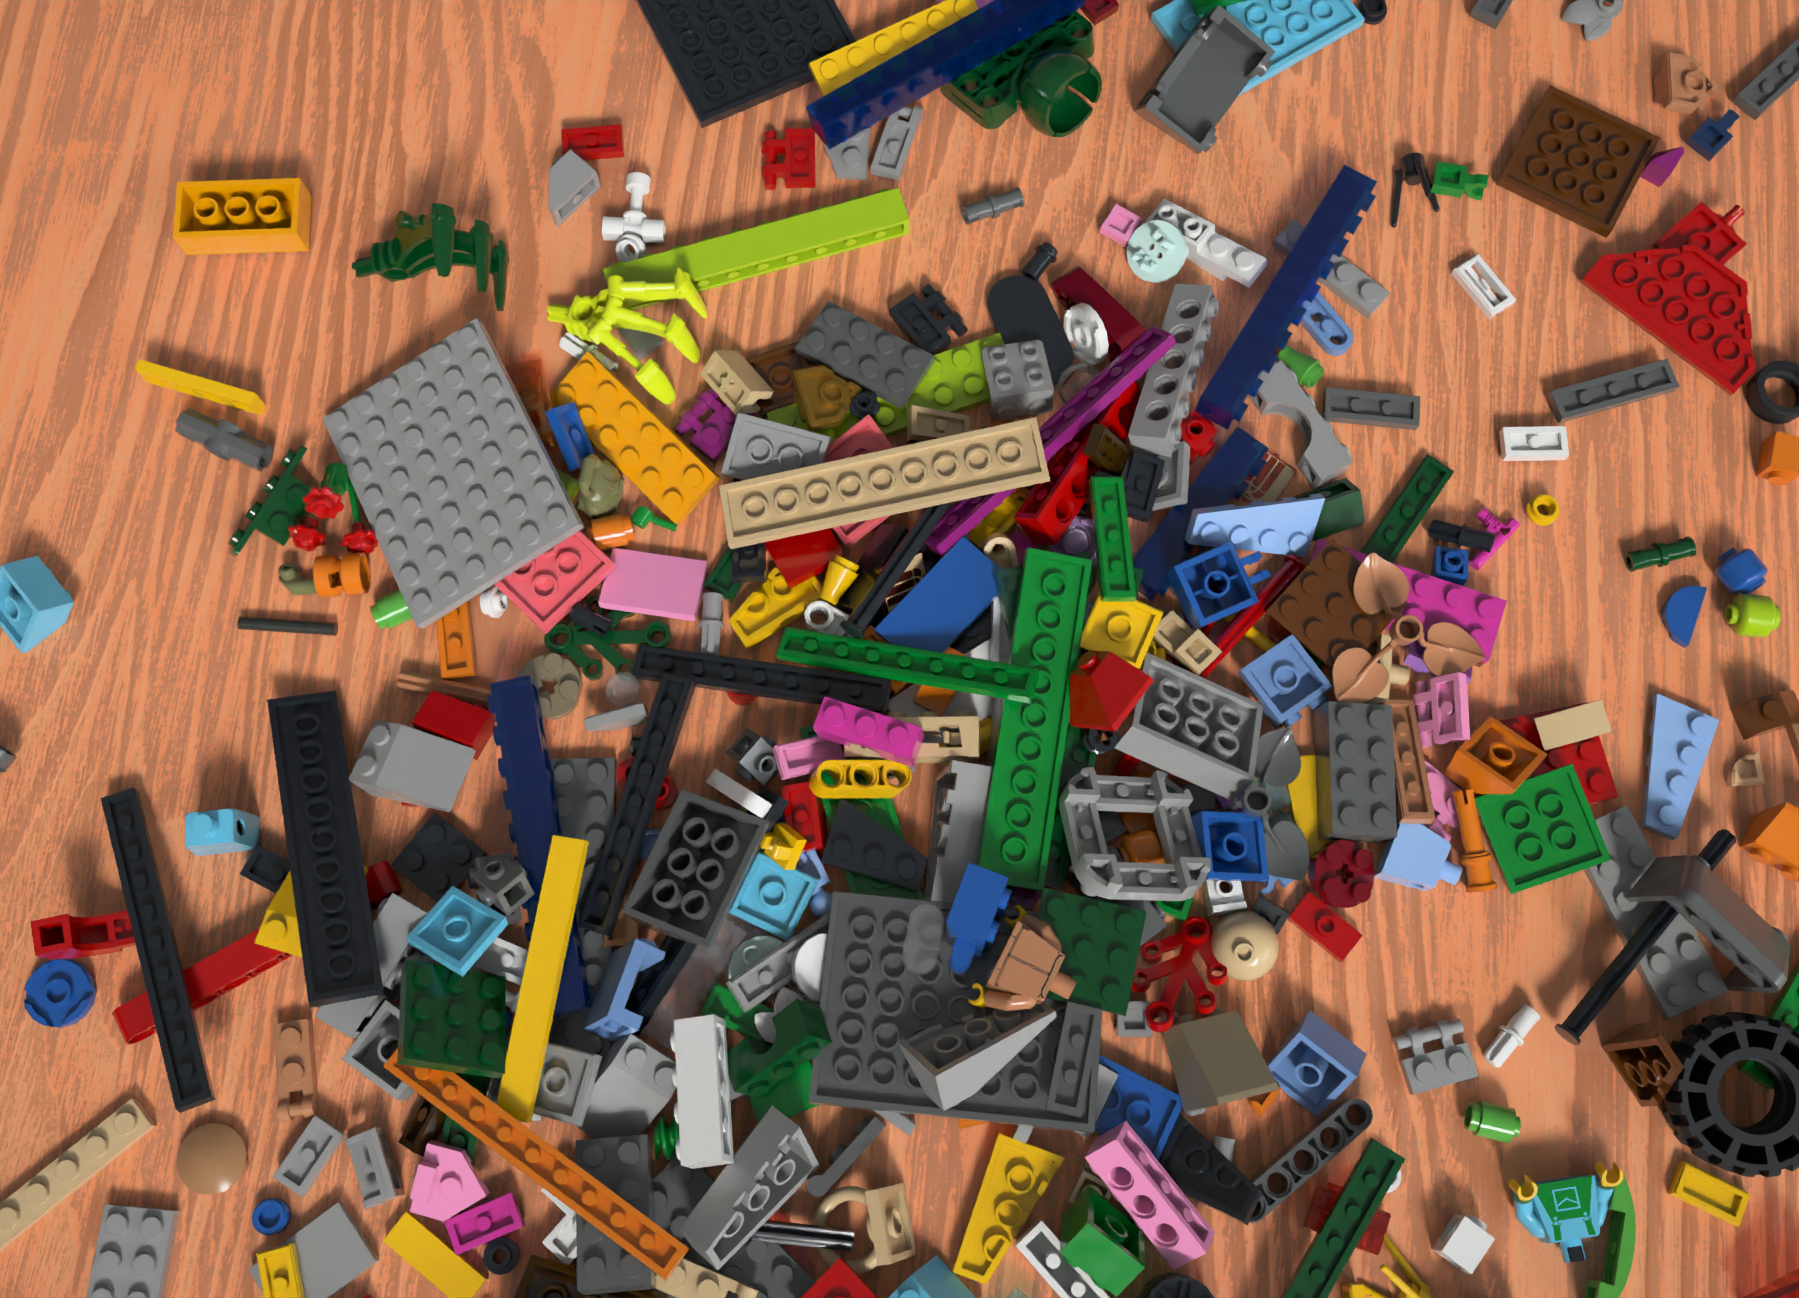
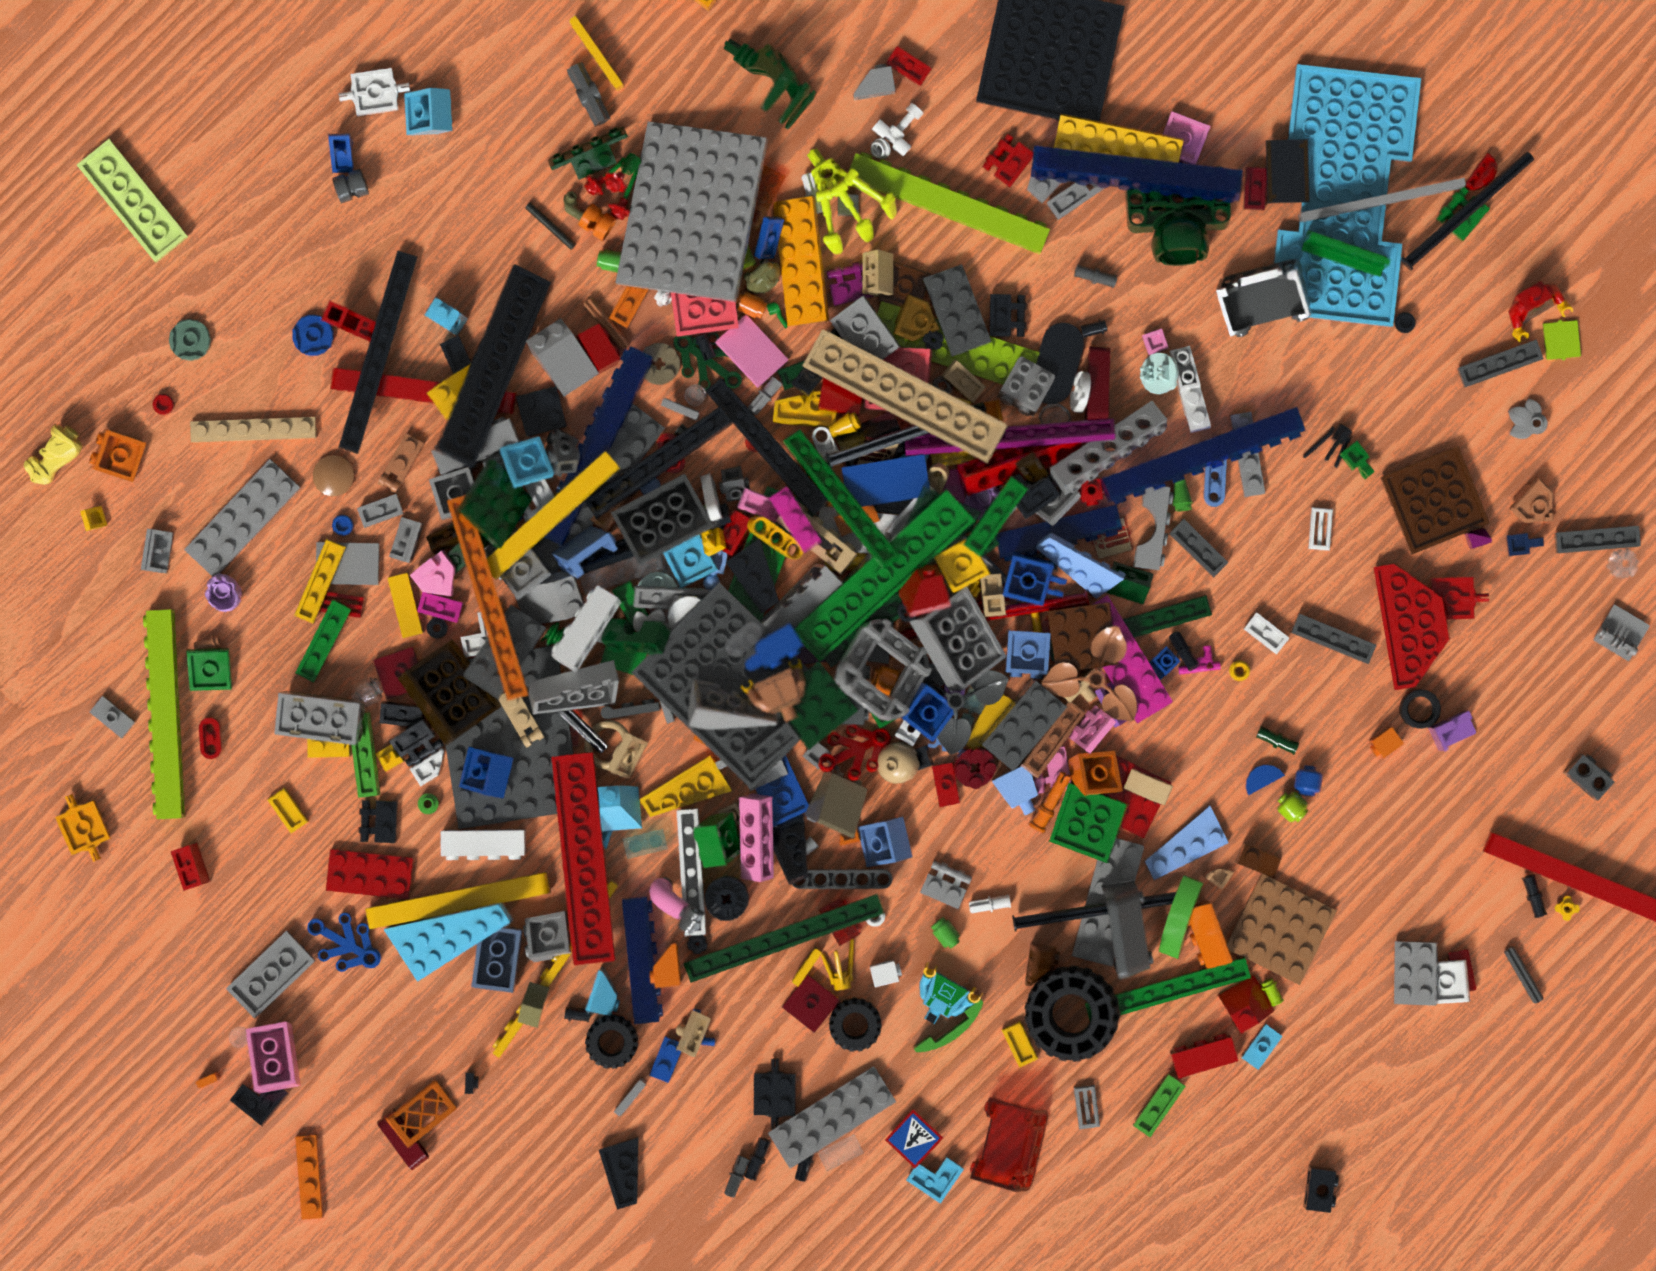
camera: 40 degrees right, 15 degrees up
(1757, 855) = (1179, 916): none -> bright green slope

